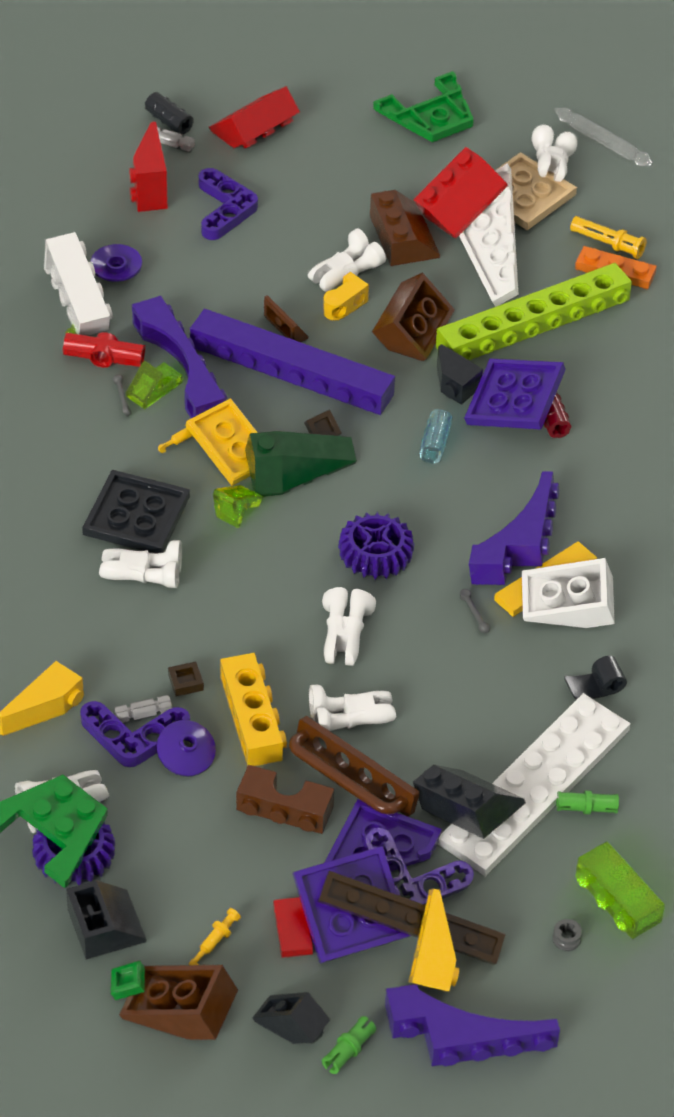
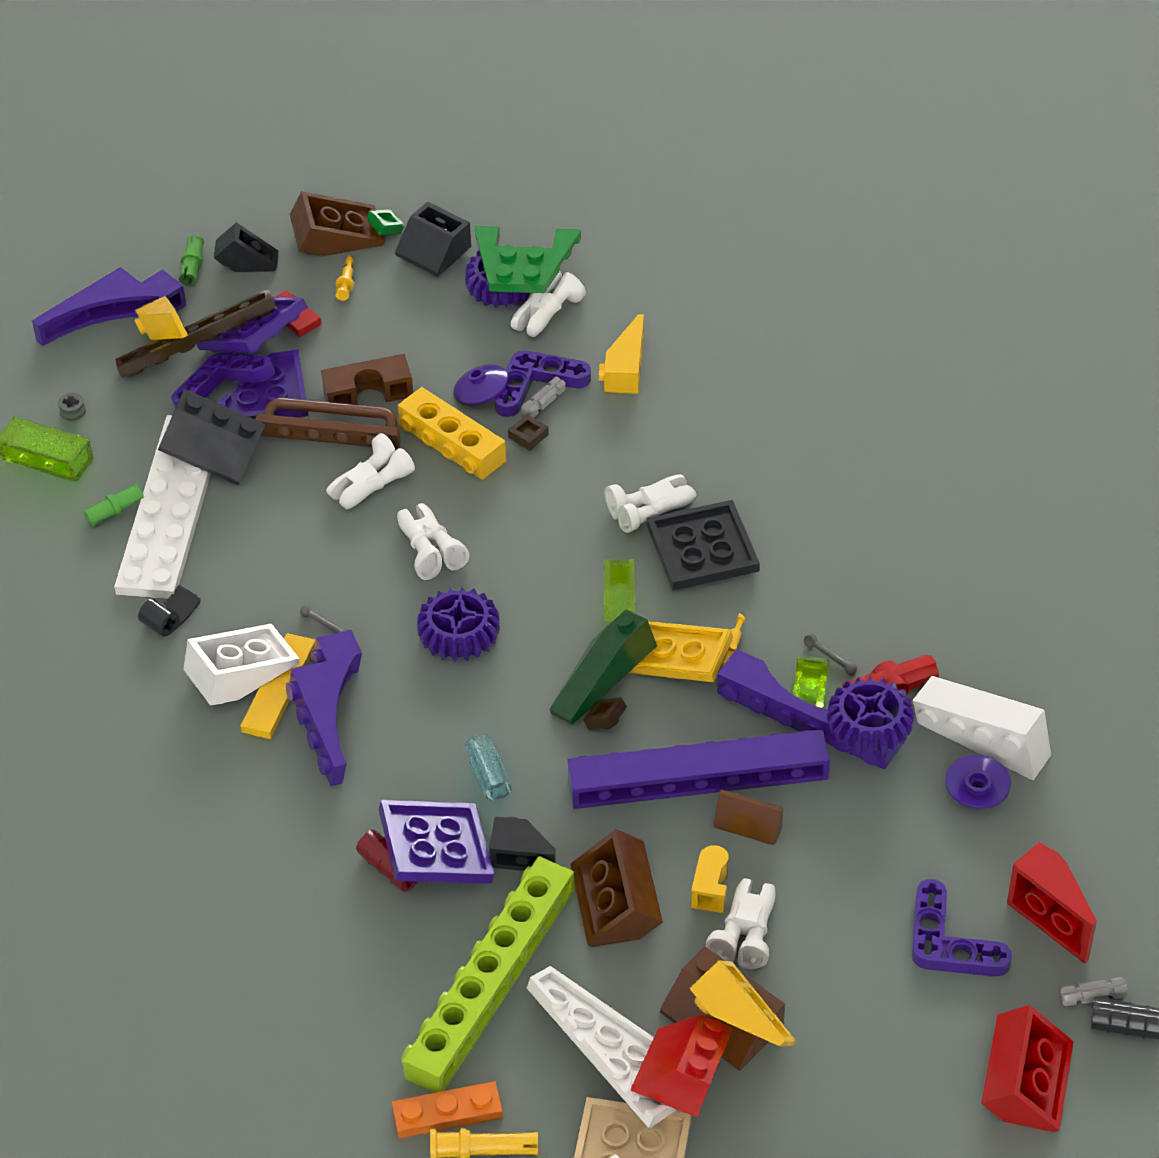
camera: 150 degrees right, 0 degrees up
(156, 305) = (869, 707): none -> dark purple gear
(404, 191) = (731, 998): none -> yellow slope

